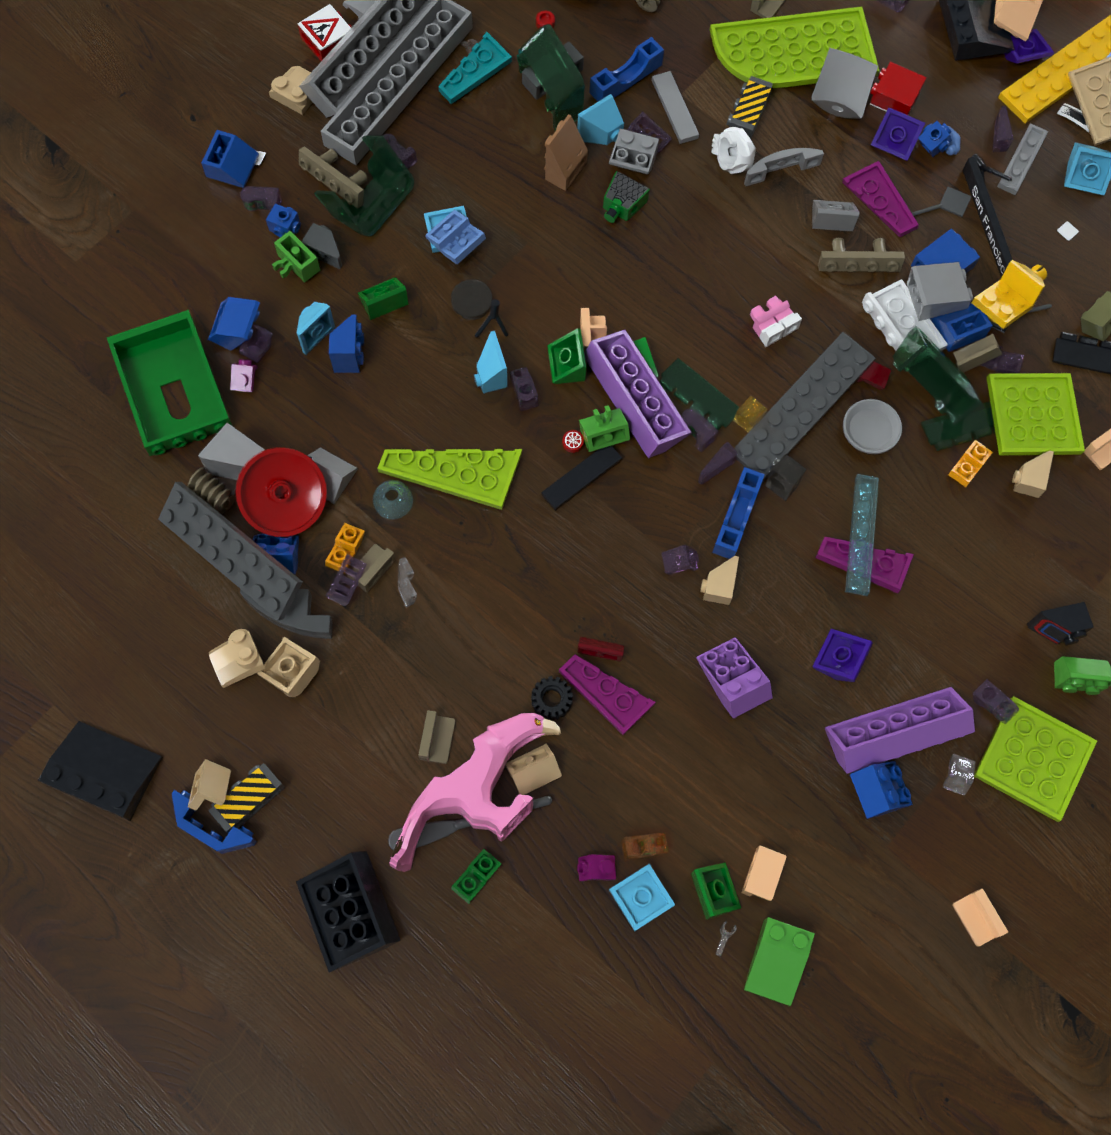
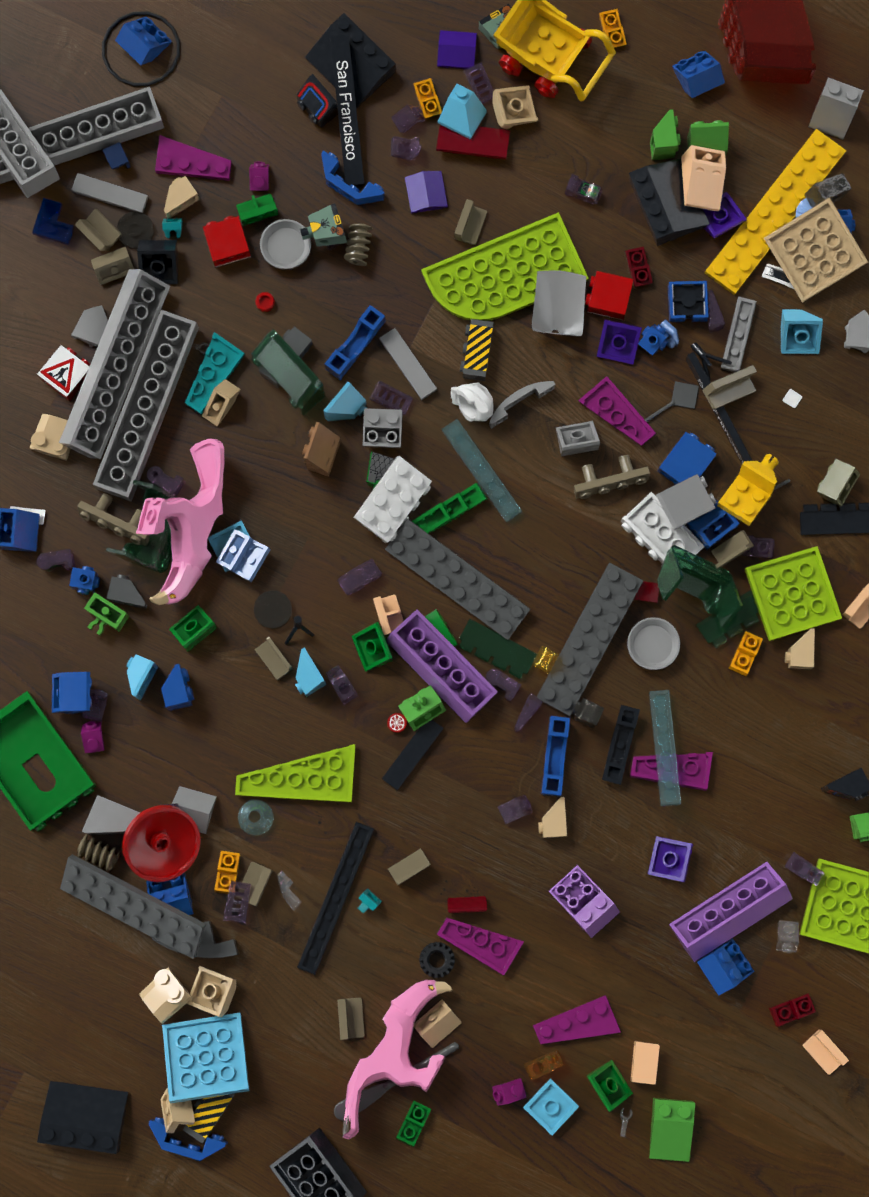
camera: 10 degrees left, 10 degrees up
(259, 736) = (205, 1058): none -> medium azure plate
(407, 186) = (189, 522): none -> bright pink animal
(455, 606) = (335, 898): none -> black tile
(459, 346) = (273, 659): none -> dark tan panel
(474, 94) = (220, 402): none -> tan slope
(491, 615) = (368, 900): none -> teal tile
(547, 592) = (409, 867): none -> dark tan panel
(567, 288) = (359, 577): none -> clear purple slope
(627, 220) = (393, 499): none -> white bracket
(676, 315) = (458, 579): none -> dark grey plate
(681, 249) = (451, 509): none -> green slope
(705, 810) = (584, 1021): none -> magenta wing
(726, 221) = (481, 470): none -> clear light blue plate
(776, 322) = (548, 564): hips -> none
(813, 520) = (620, 744): none -> black slope
(932, 69) = (638, 266): none -> dark red slope
(949, 859) = (792, 1010): none -> dark red slope
(977, 113) = (688, 301): none -> piece
(1007, 197) = (730, 388): none -> dark tan panel

